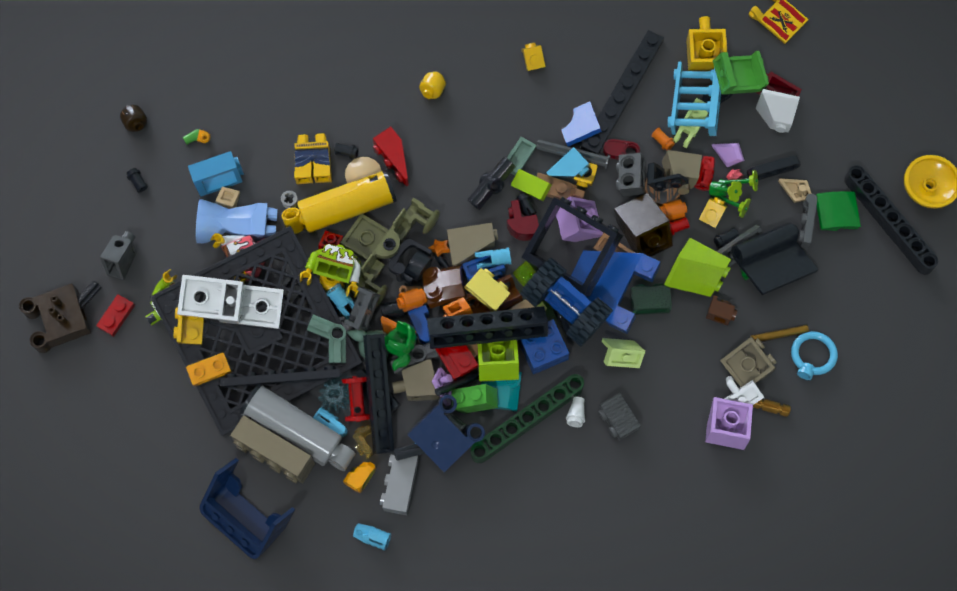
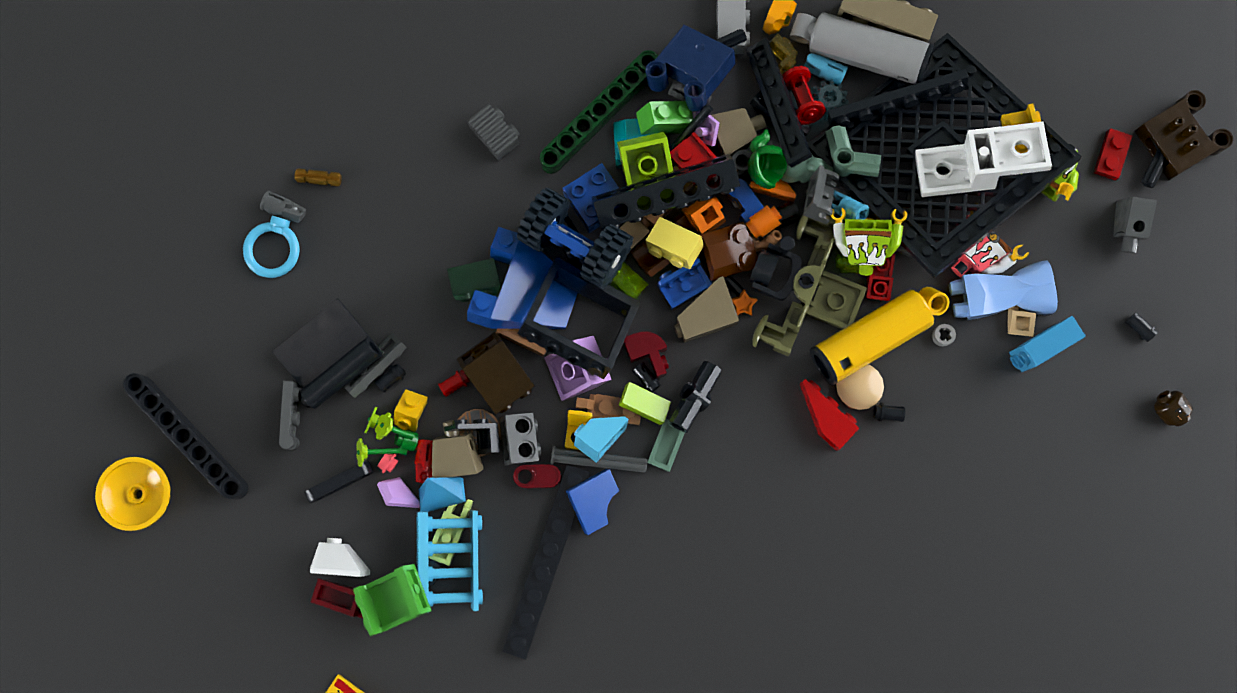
camera: 170 degrees right, 10 degrees up
(197, 135) = (1083, 402): arm -> none
(208, 369) = (983, 83): light orange bracket -> none
(312, 153) = (928, 390): hips -> none
(432, 85) = (798, 523): yellow head -> none
(498, 258) = (674, 293): medium azure hinge -> none
(533, 56) = (673, 591): yellow bracket -> none
(576, 413) = (543, 128): white cone -> none
(623, 353) = (499, 206): yellowish green panel -> none
(666, 142) = (485, 499): orange pin -> none
(674, 209) = (461, 401): orange brick -> none
(696, 145) = (441, 493): none -> dark azure slope
(698, 269) = (420, 319): lime slope -> none
(704, 45) = (442, 640): yellow brick -> none
(721, 311) = (387, 279): reddish brown brick -> none
(729, 423) = (363, 142): lavender slope -> none
(747, 394) = (352, 175): white plate -> none
(749, 362) = (346, 220): dark tan plate -> none
(781, 333) = (315, 267): pearl gold bar -> none
(795, 189) = (307, 459): tan piece -> none
(802, 384) = (282, 207): none -> dark grey hinge
(837, 210) = (253, 438): green slope -> none

